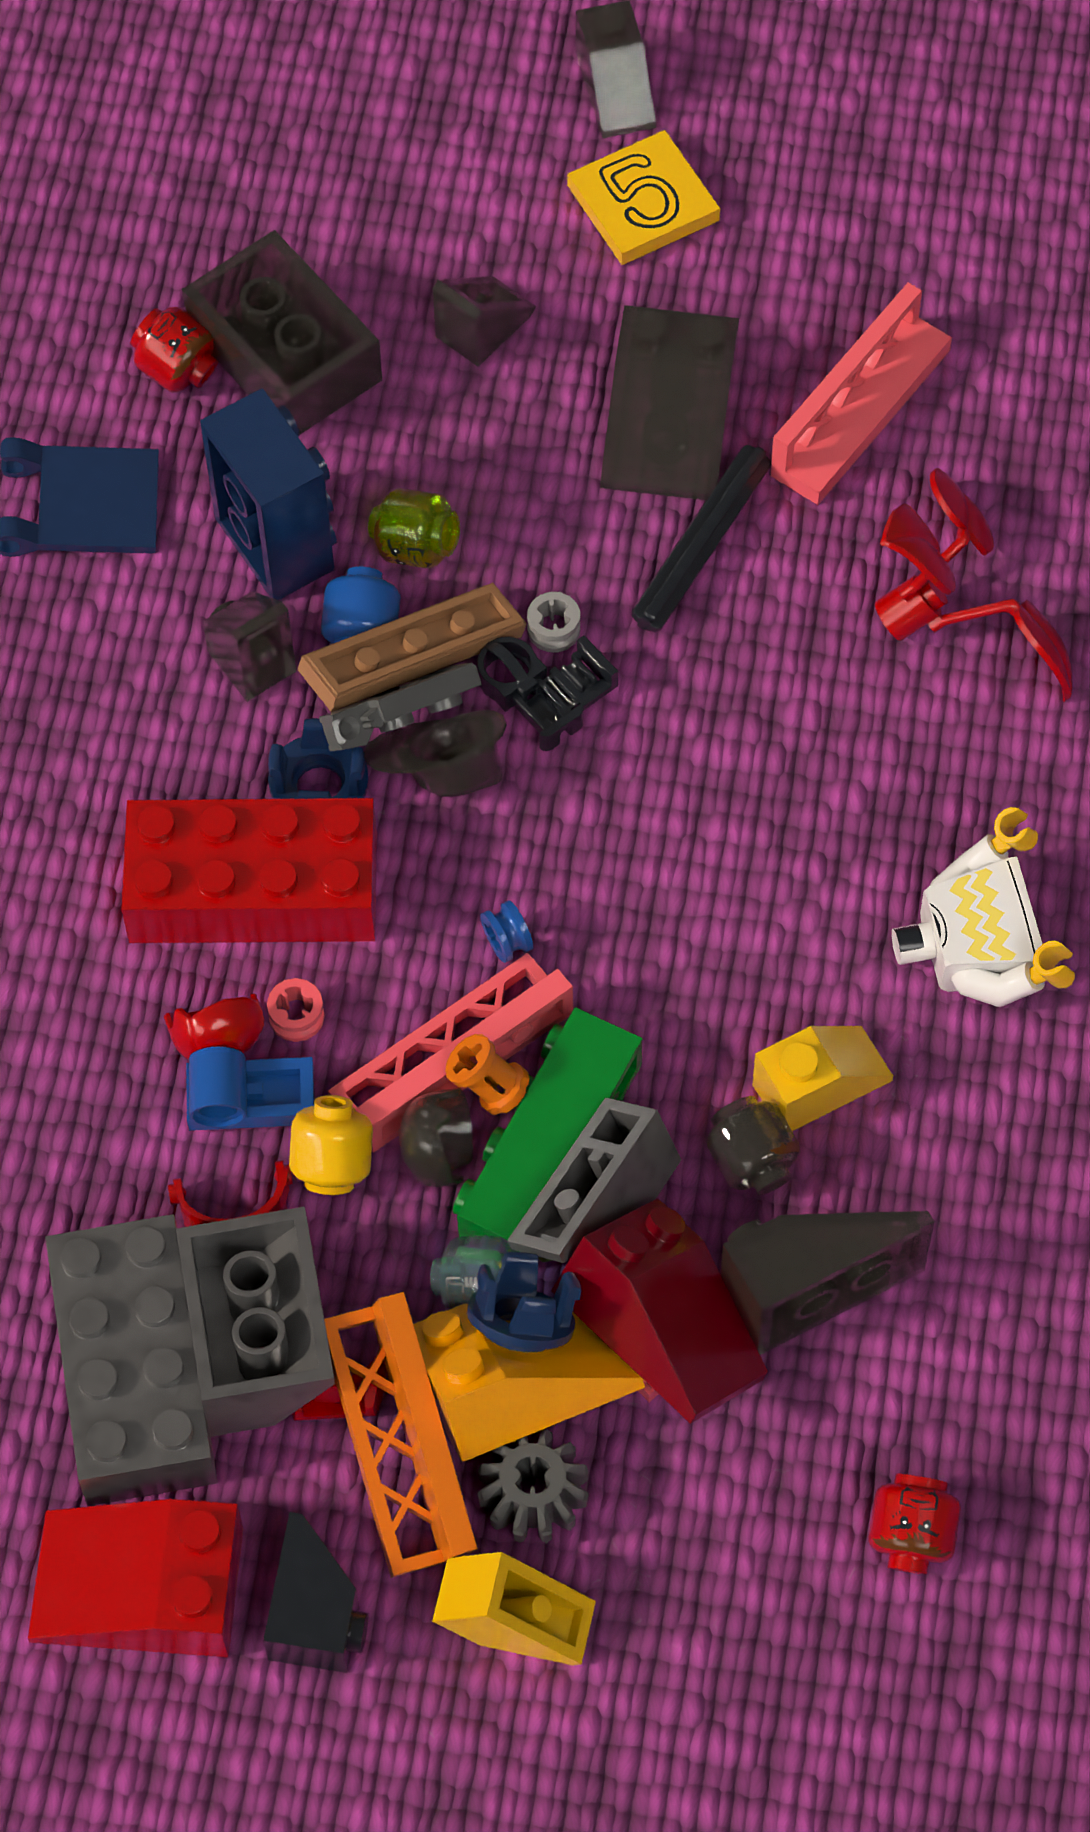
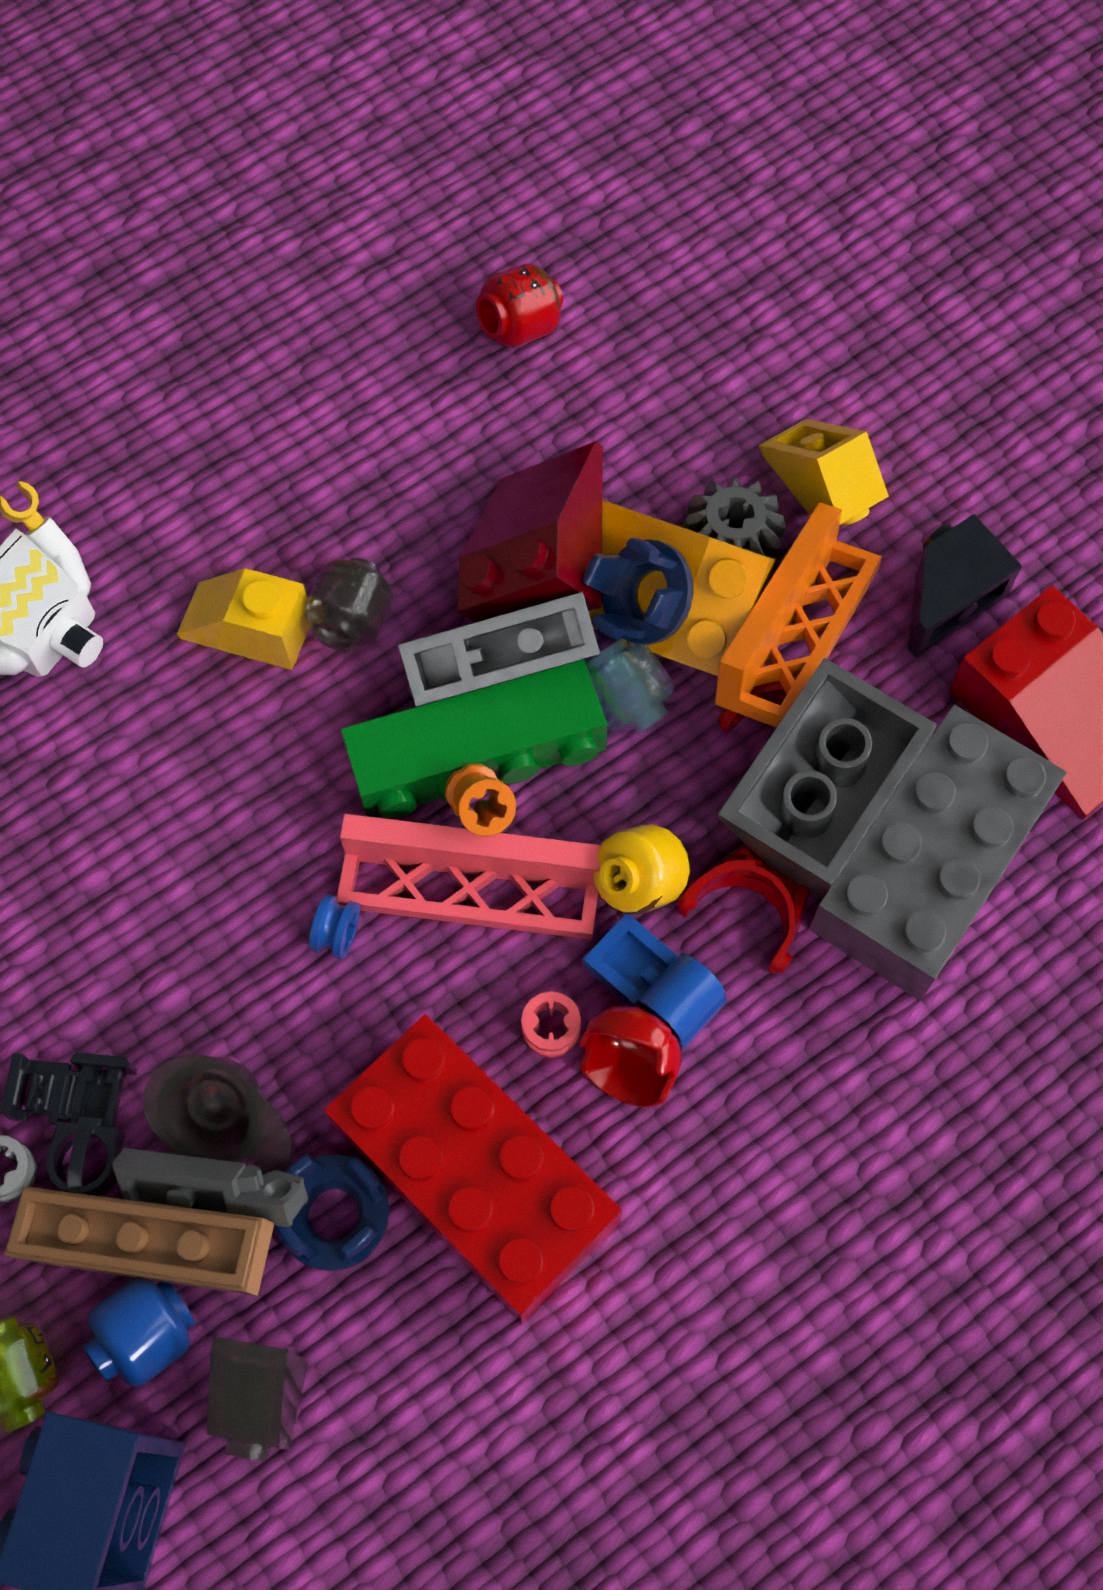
camera: 135 degrees left, 5 degrees up
(437, 1137) = (566, 807): clear smoke hair -> none
(818, 1266) = (410, 468): clear smoke slope -> none

